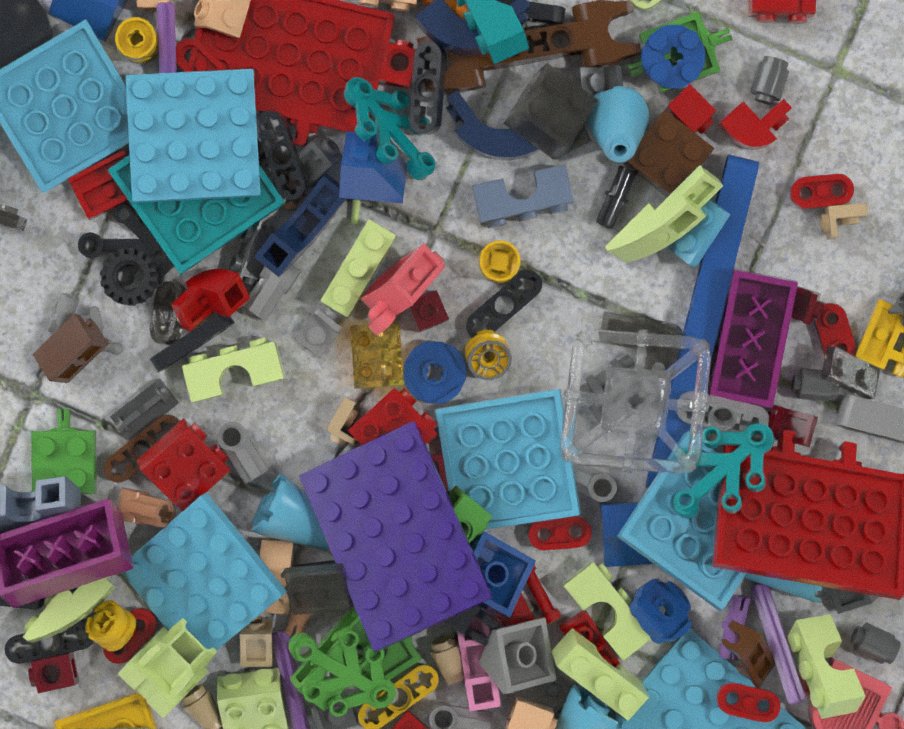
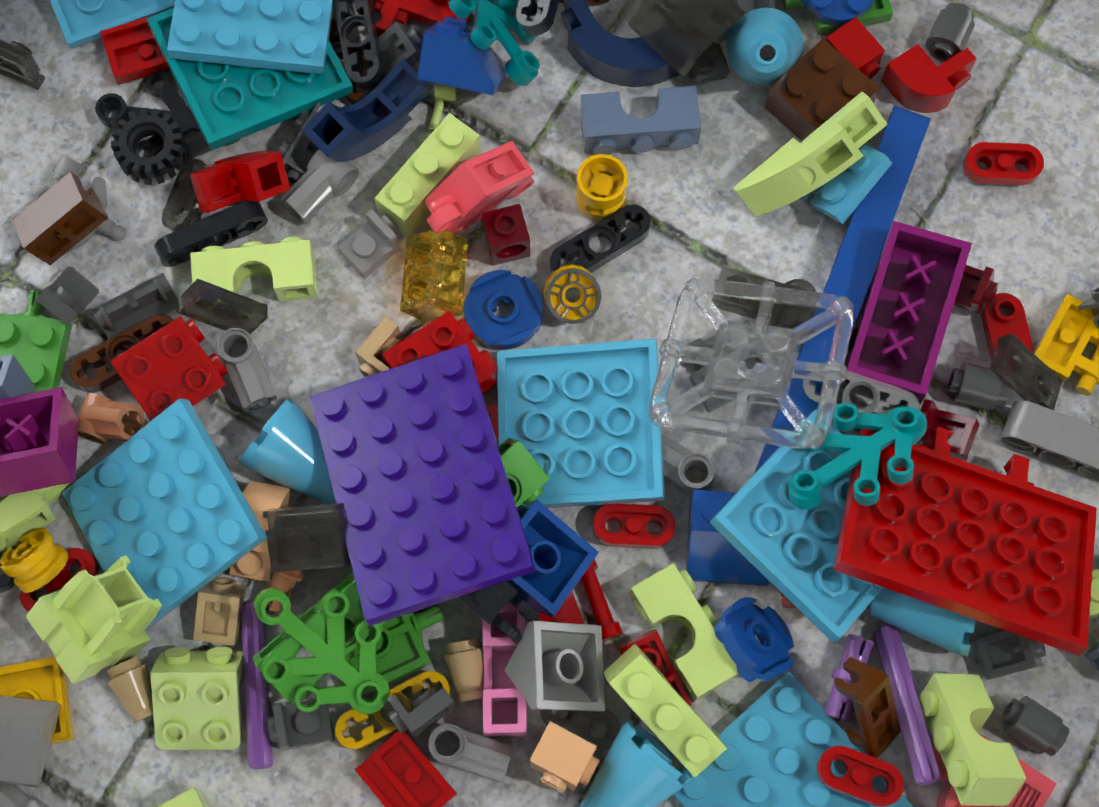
camera: 10 degrees right, 15 degrees down
(89, 411) = (68, 295): none -> dark grey bracket
(215, 409) = (221, 307): none -> clear smoke plate
(426, 697) = (428, 710): none -> dark grey bracket
(616, 197) = (752, 138): black axle -> none
(845, 213) = (1027, 189): tan bracket -> none

